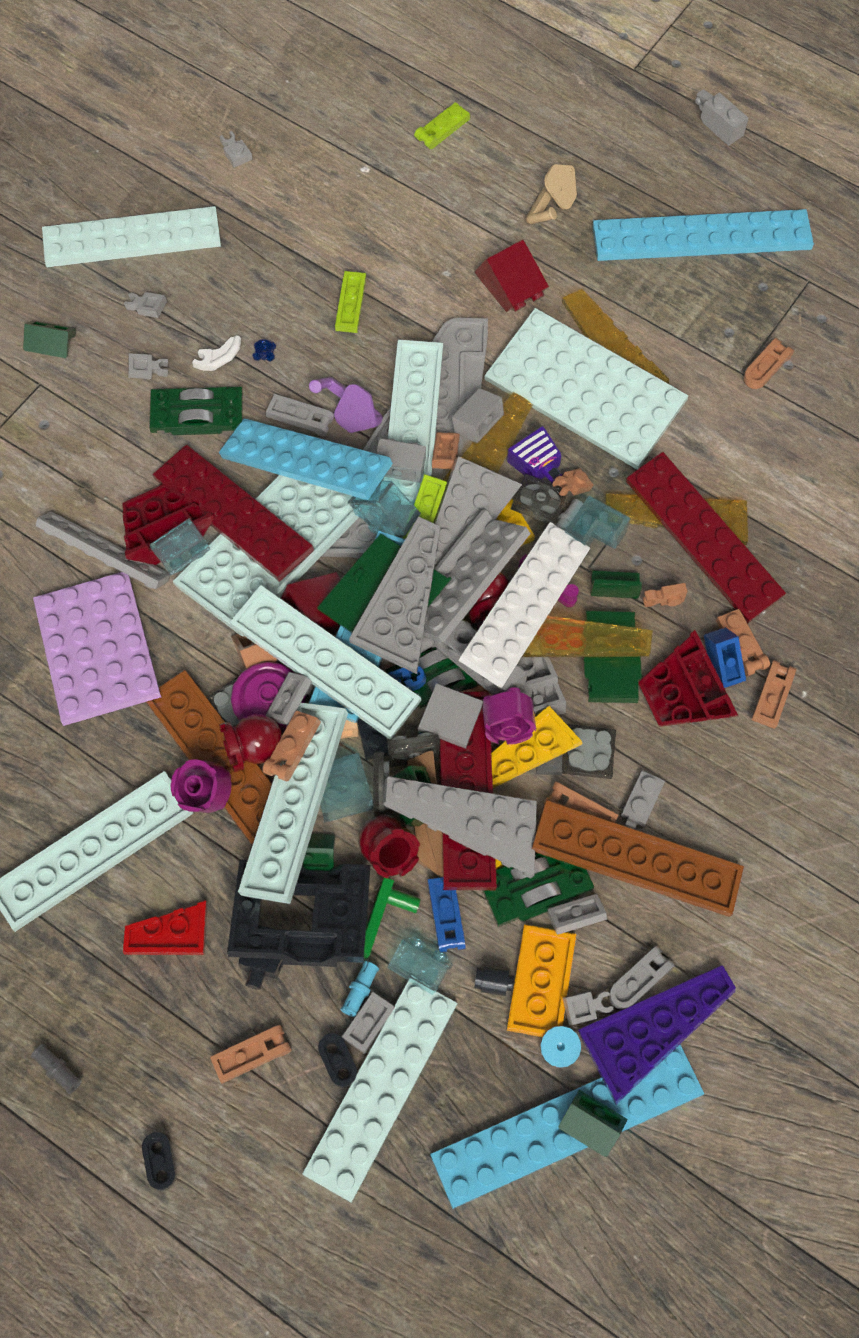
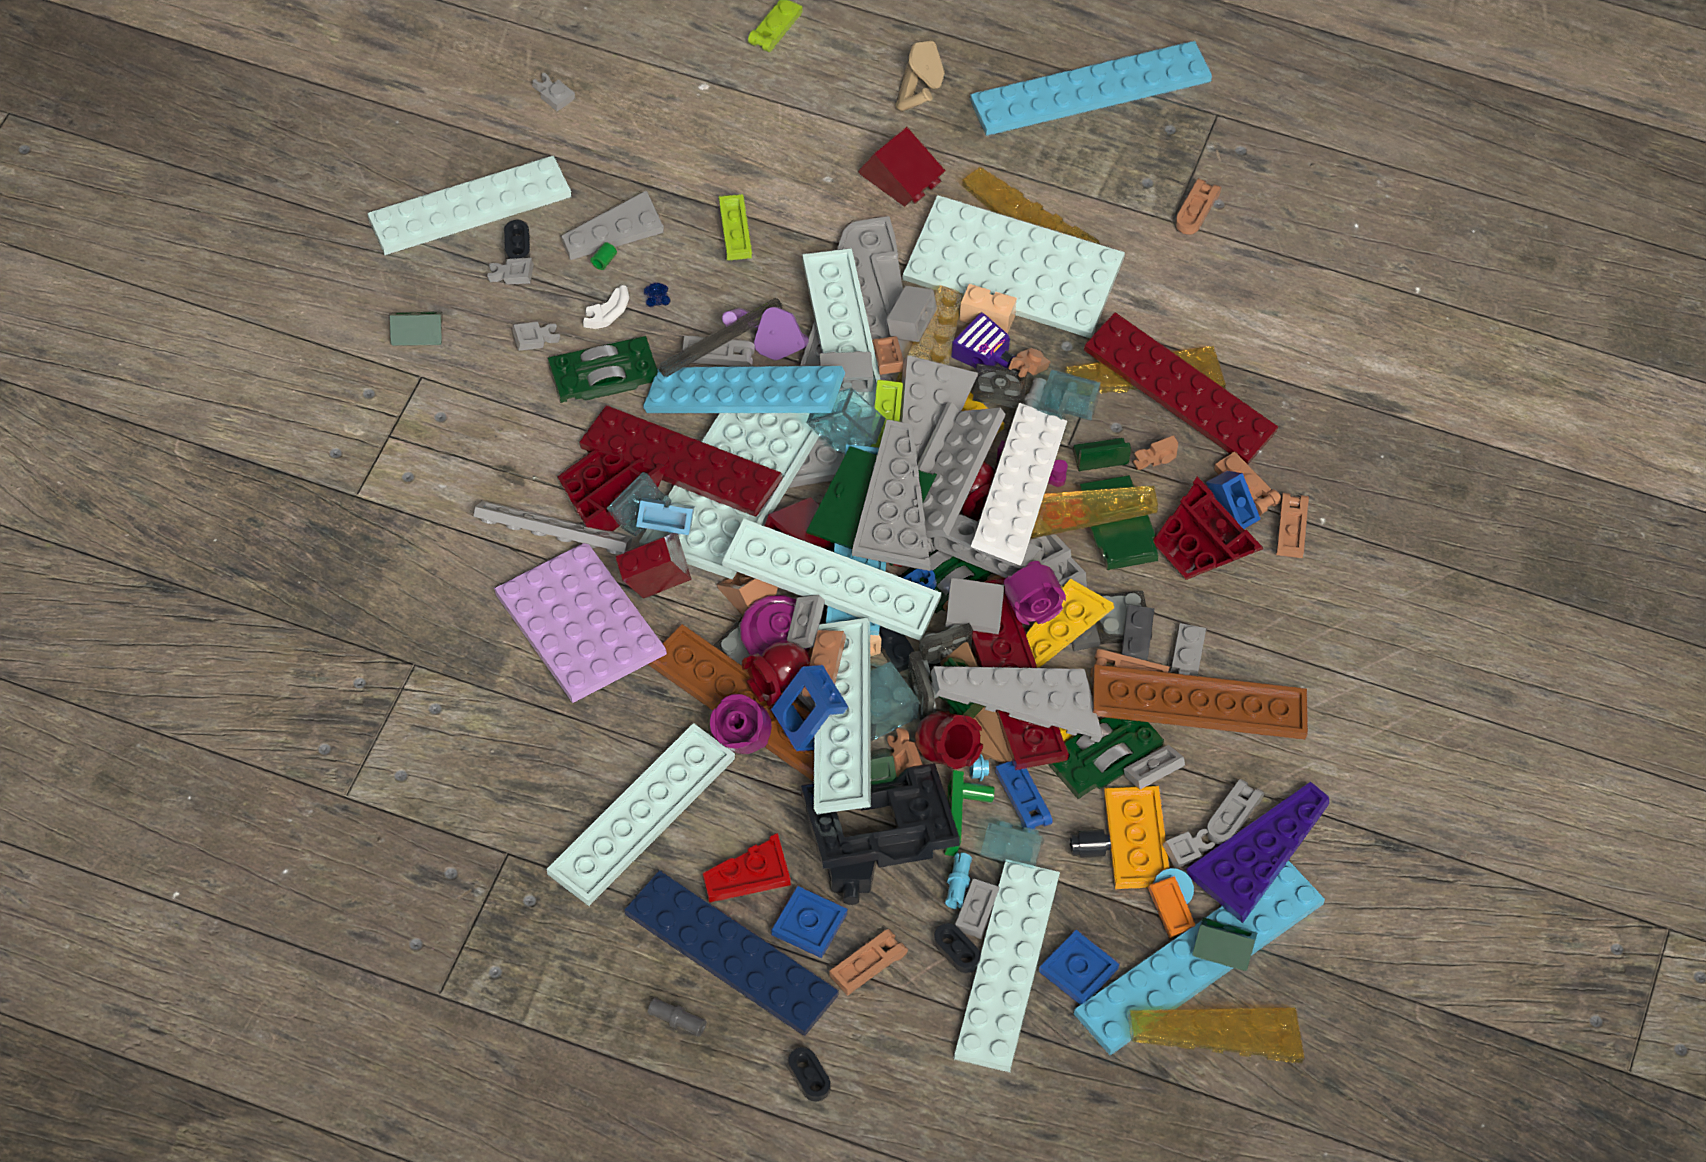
camera: 15 degrees left, 10 degrees down
(129, 1013) = (732, 953): none -> dark blue plate
(157, 279) = (514, 243): none -> black plate
(172, 608) = (654, 566): none -> dark red slope
(197, 568) = (673, 519): none -> dark azure piece
(208, 999) = (809, 922): none -> blue plate
(229, 305) = (603, 256): none -> green hinge
(249, 281) = (618, 226): none -> light grey wing
(276, 784) = (827, 701): none -> blue panel
(297, 404) = (716, 339): none -> clear smoke axle
(347, 848) = (905, 752): none -> nougat plate
(413, 877) = (979, 768): none -> medium azure plate
(447, 1110) = (1079, 967): none -> blue plate
(553, 1066) = (1171, 906): none -> orange tile
(558, 425) = (997, 307): none -> light nougat piece
(586, 1220) = (1240, 1030): none -> clear yellow wing
(598, 773) = (1137, 632): none -> black plate

